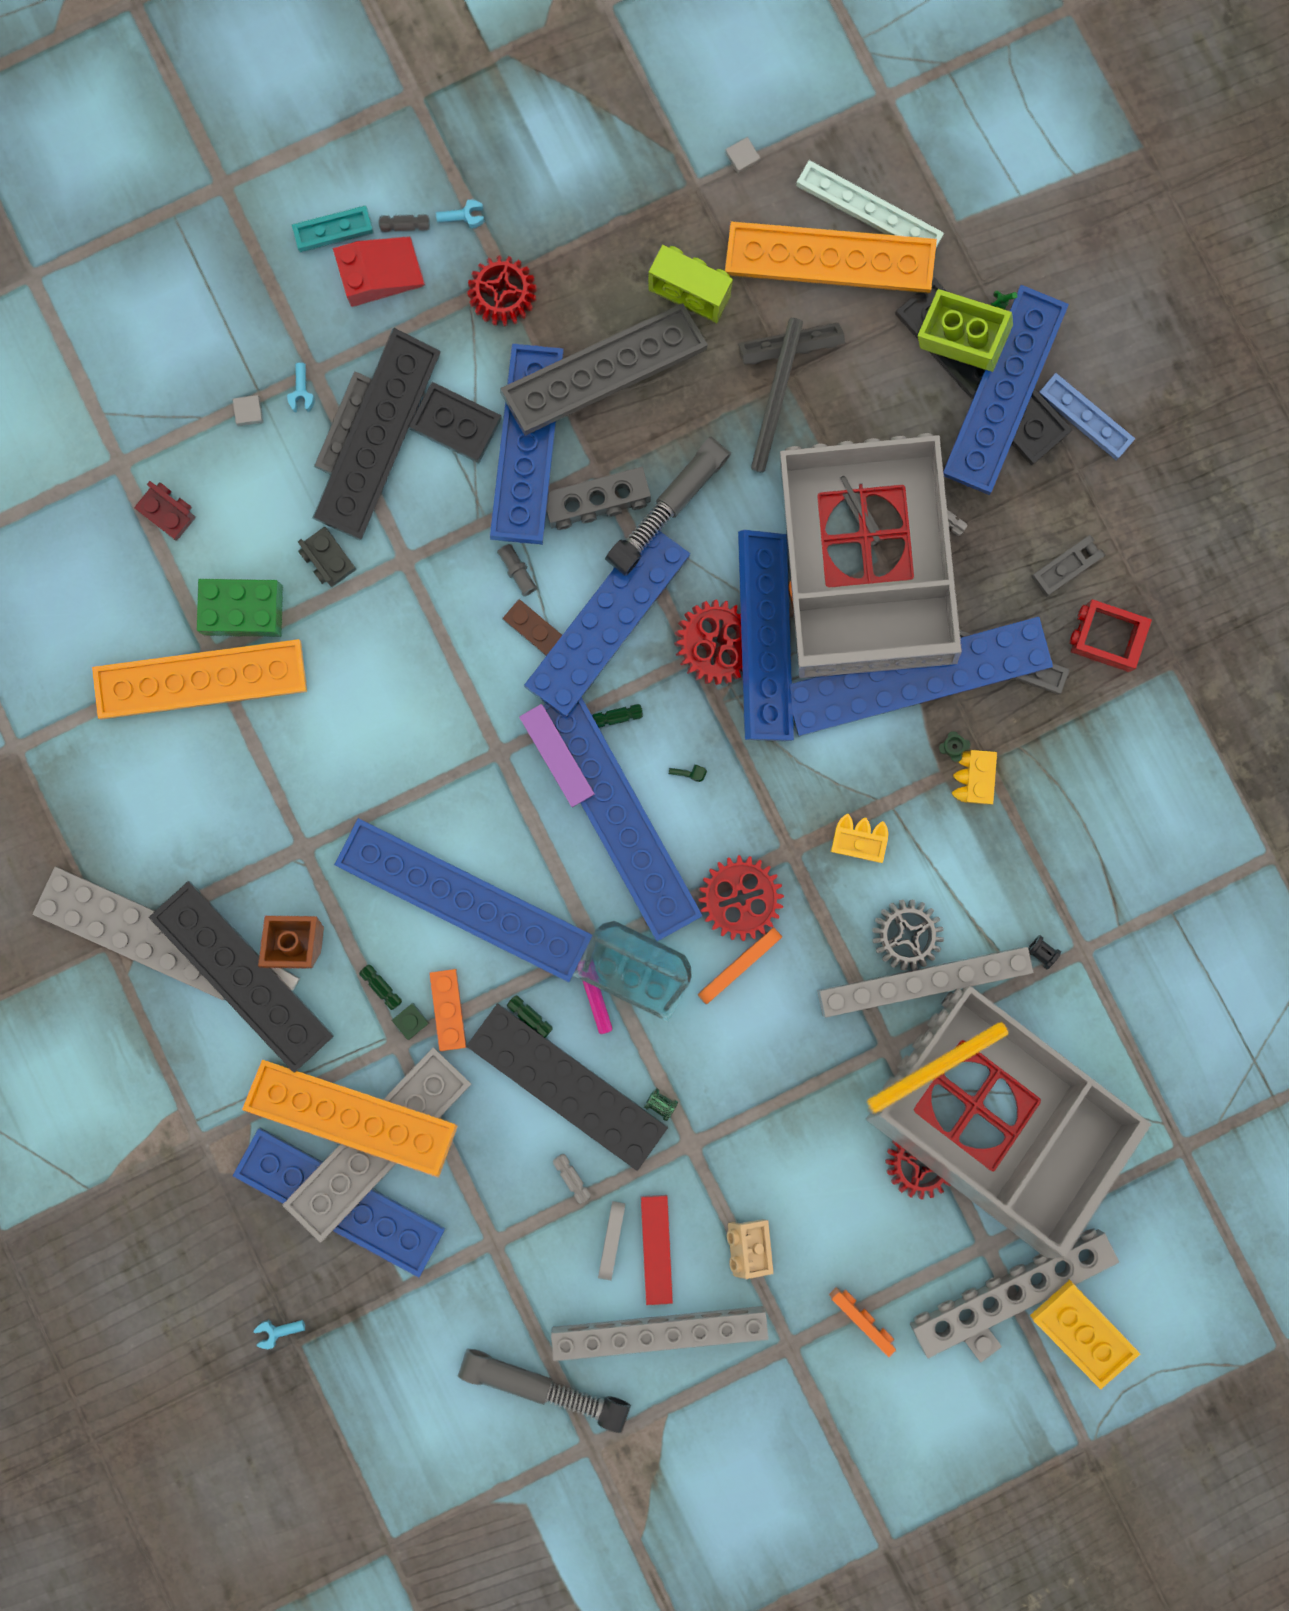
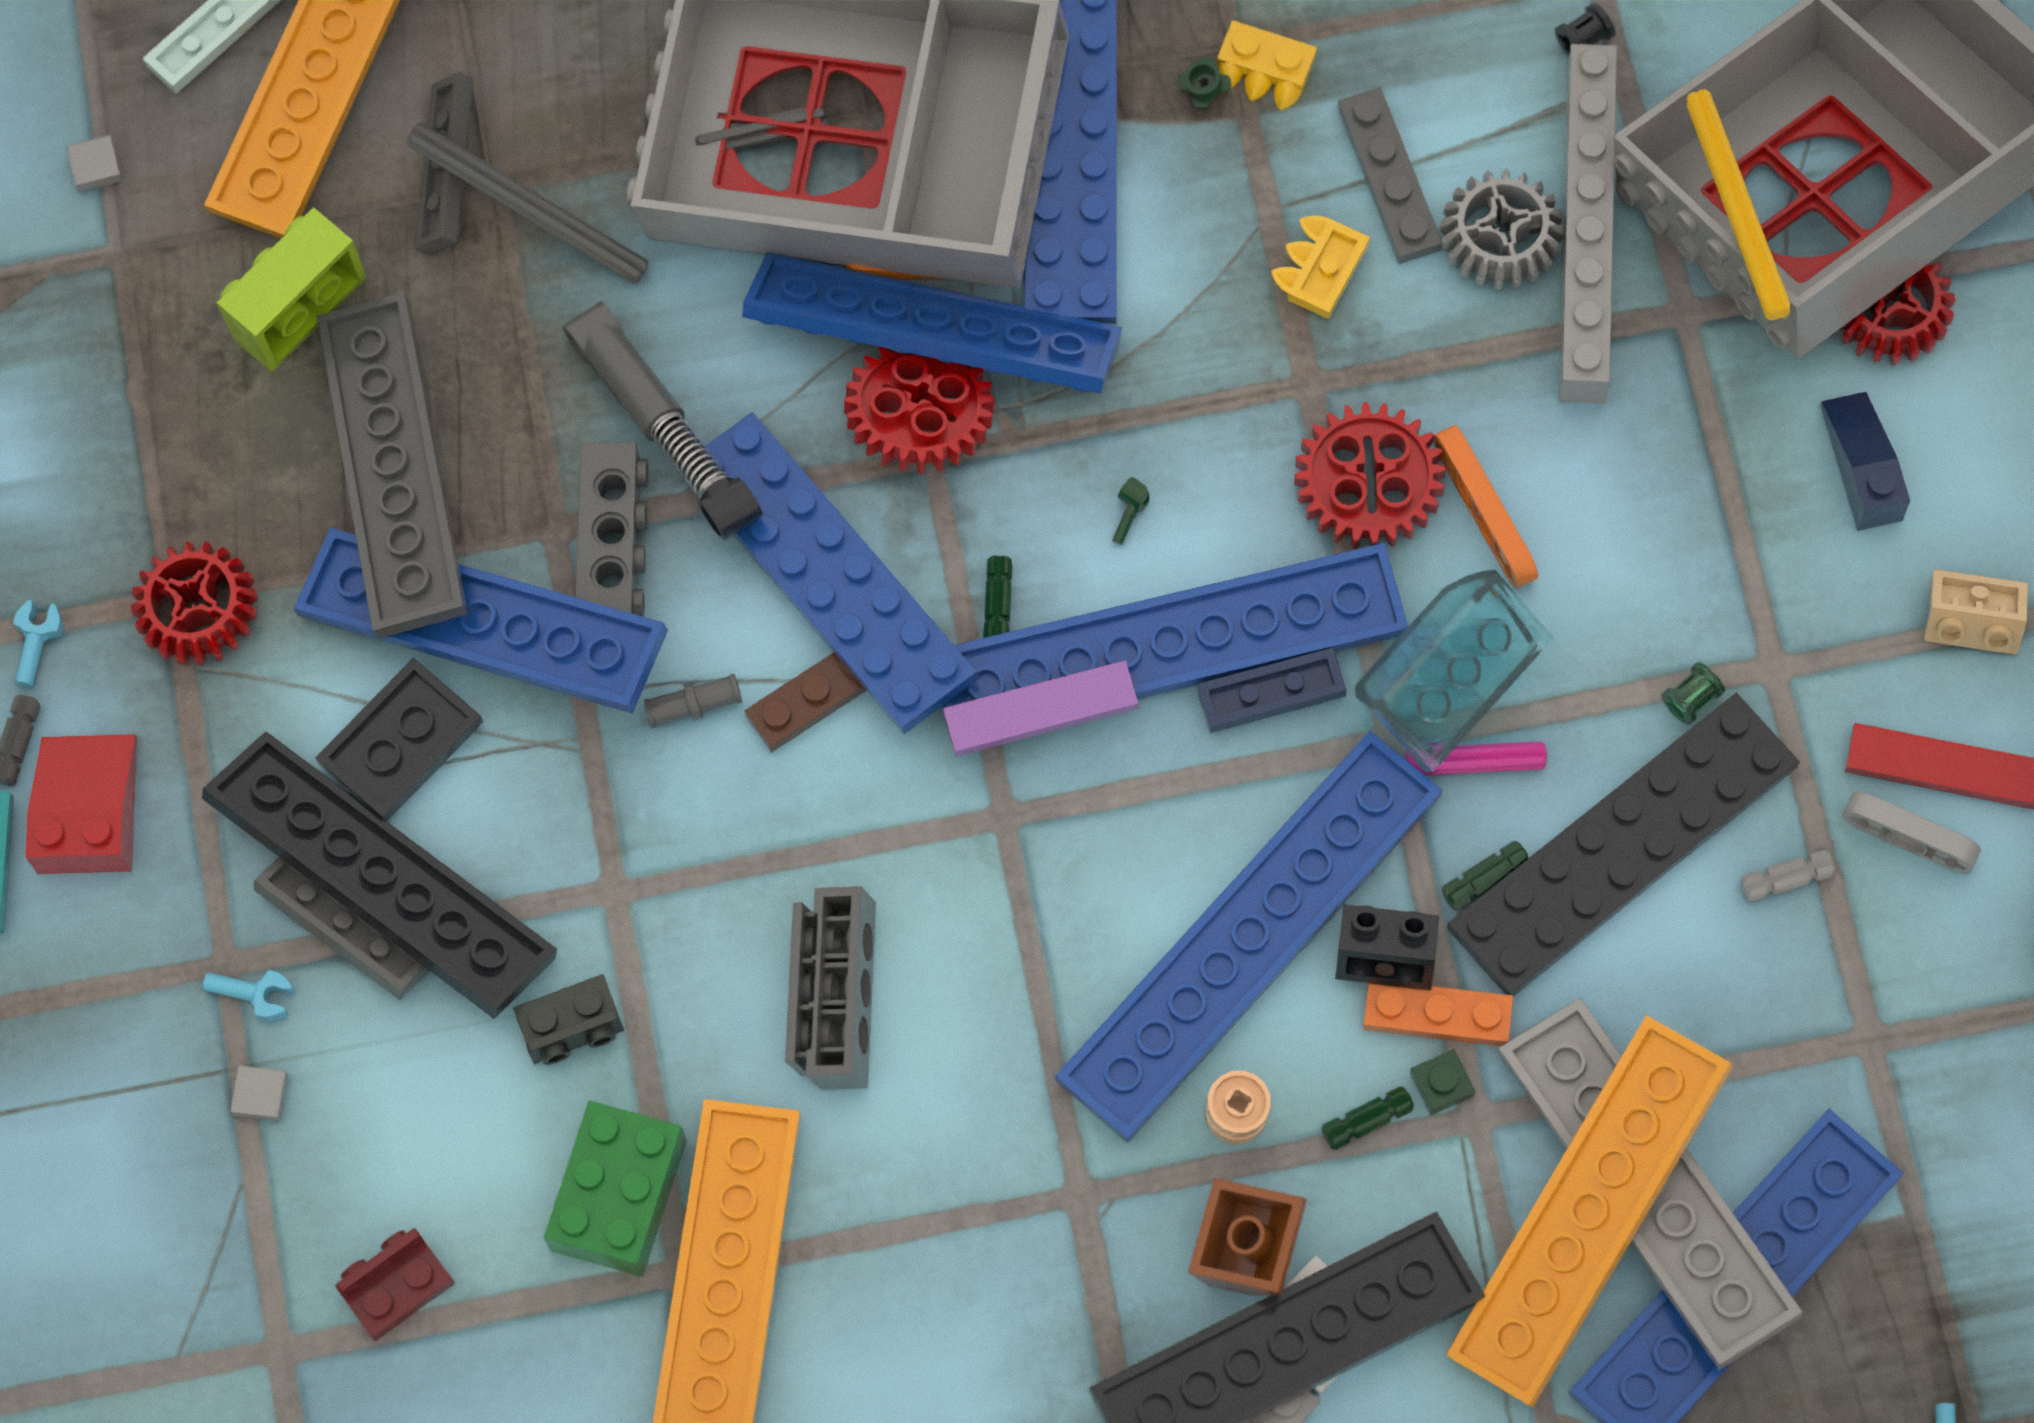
camera: 70 degrees left, 15 degrees down
(363, 918) = (1237, 1107): none -> light nougat wheel
(373, 688) = (831, 988): none -> dark grey brick
(473, 974) = (1387, 947): none -> black brick
(603, 876) = (1271, 690): none -> dark blue plate
(824, 1167) = (1865, 461): none -> dark blue slope
(927, 864) = (1389, 175): none -> dark grey plate

